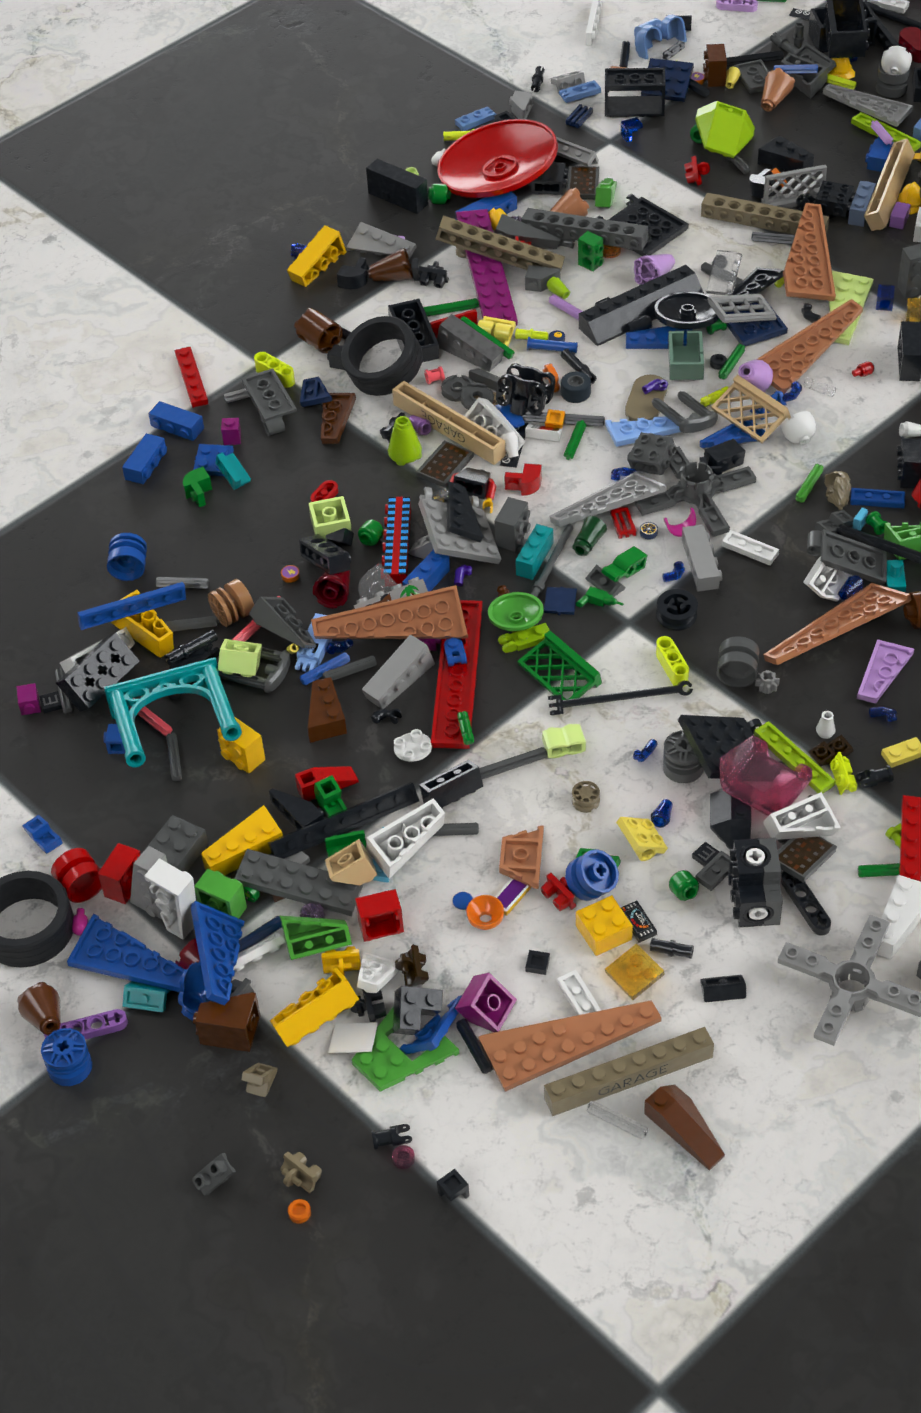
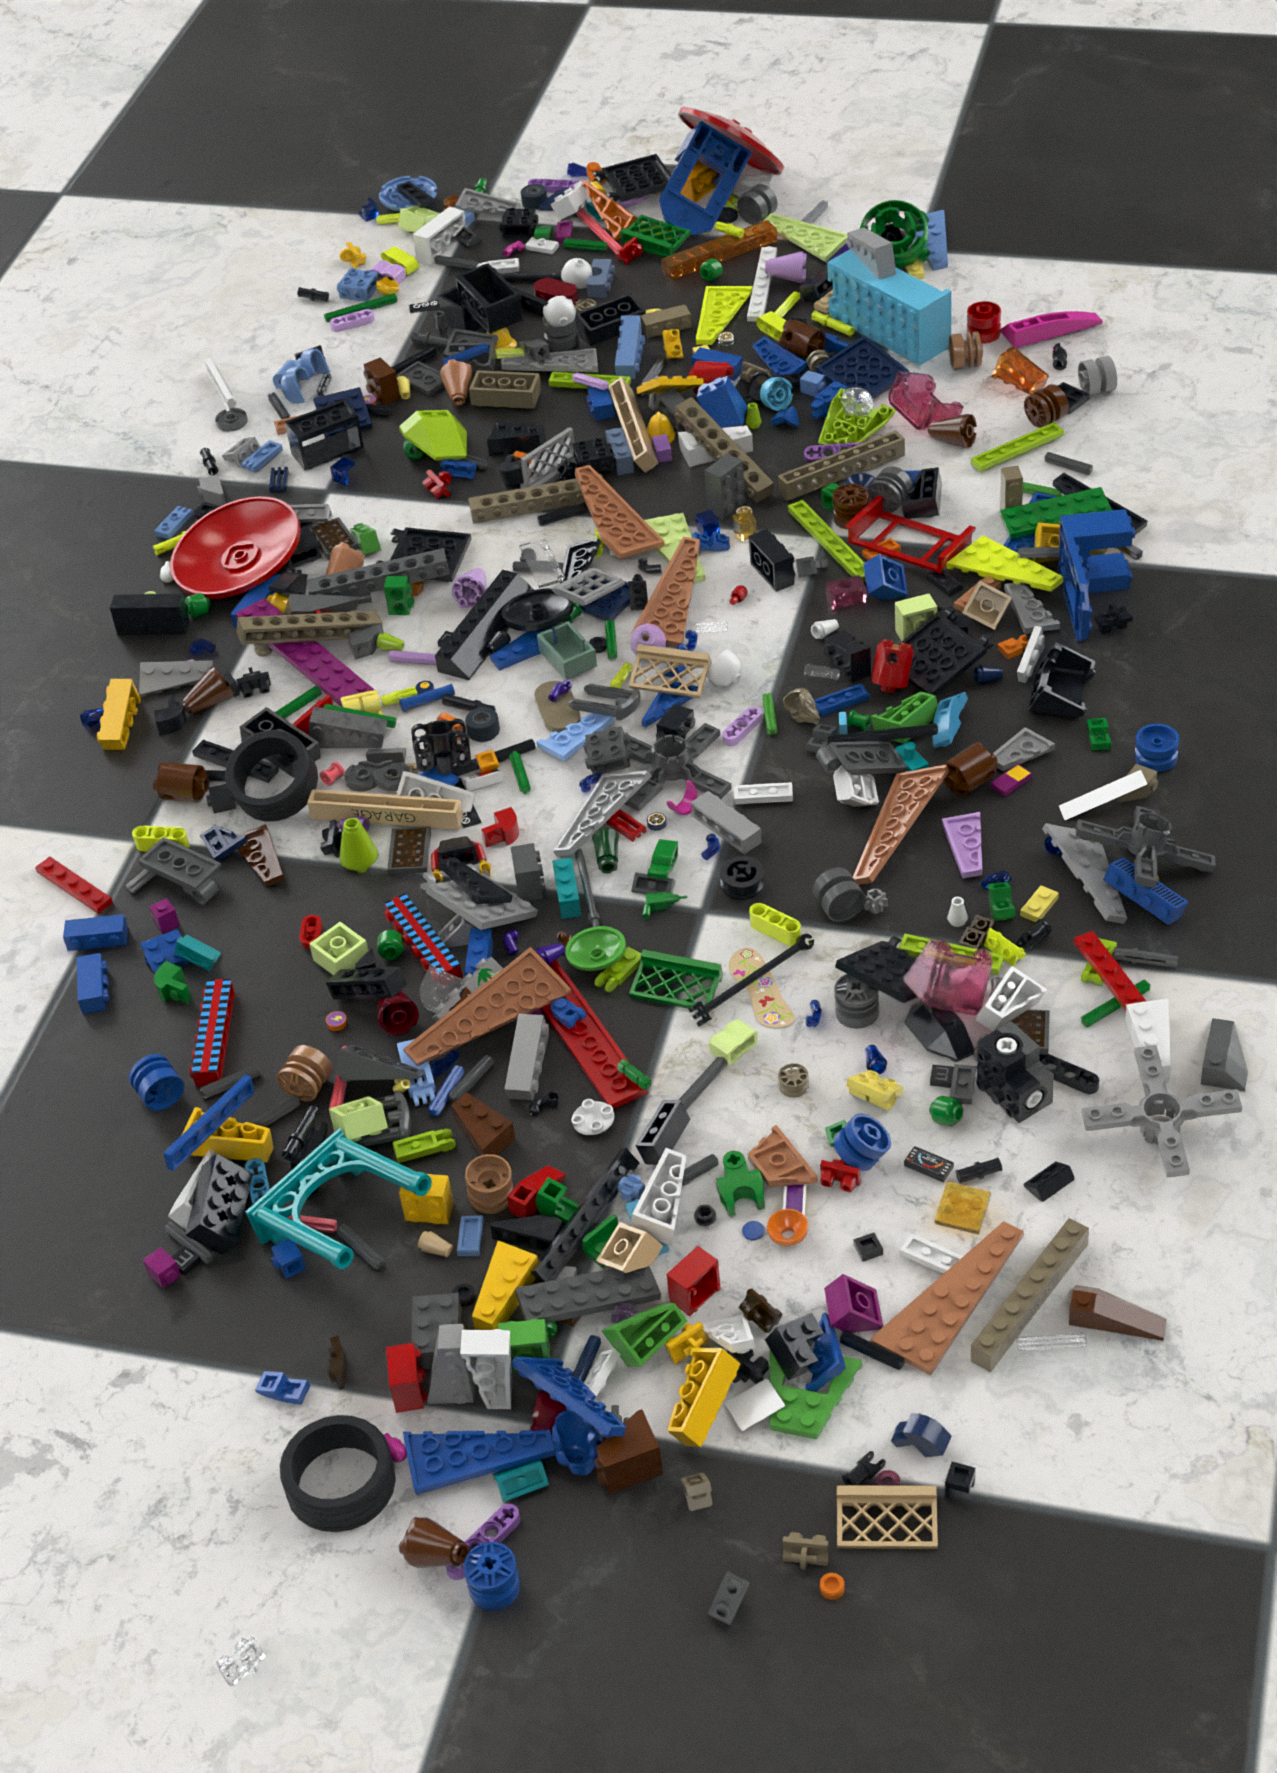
camera: 30 degrees left, 5 degrees down
(77, 874) = (361, 1399): red wheel -> none
(91, 837) = (337, 1363): none -> dark brown slope
(149, 655) = (261, 1177): none -> dark azure beam
(197, 538) = (212, 1032): none -> brick
(215, 832) = (466, 1294): none -> black tile
(223, 783) = (433, 1244): none -> tan cone
(255, 791) = (470, 1236): none -> medium blue tile
(276, 702) = (423, 1145): none -> lime hinge
(291, 755) = (488, 1183): none -> medium nougat wheel
(385, 348) = (220, 755): none -> black plate
(388, 1165) = (892, 1497): none -> tan fence
(393, 813) = (631, 1187): none -> medium blue gear
(419, 227) = (201, 644): none -> clear blue arm
(434, 864) = (705, 1210): none -> black plate
(440, 495) = (440, 875): clear axle -> none
(454, 1135) = (923, 1433): none -> dark blue brick
(476, 598) = (551, 952): none -> dark purple cone
(478, 857) = (739, 1183): none -> green piece
(511, 444) = (466, 801): white cone -> none
(514, 204) = (290, 582): none -> black slope
(560, 600) = (624, 920): dark blue piece -> none
(581, 51) = (231, 420): none -> dark grey tile
(604, 925) = (904, 1182): yellow brick -> none
(619, 724) = (766, 998): none -> tan sticker
(722, 164) = (459, 468): none -> blue hinge
(767, 486) = (733, 734): none -> lavender beam
(778, 330) = (638, 593): none -> black hinge
(809, 111) = (505, 389): none -> dark tan brick
(851, 586) = (882, 785): clear blue cone -> none
(859, 86) = (535, 349): none -> dark grey piece
(868, 734) = (1001, 901): none -> green brick
(880, 316) = (715, 542): none -> blue slope
(880, 466) = (821, 671): none -> clear axle

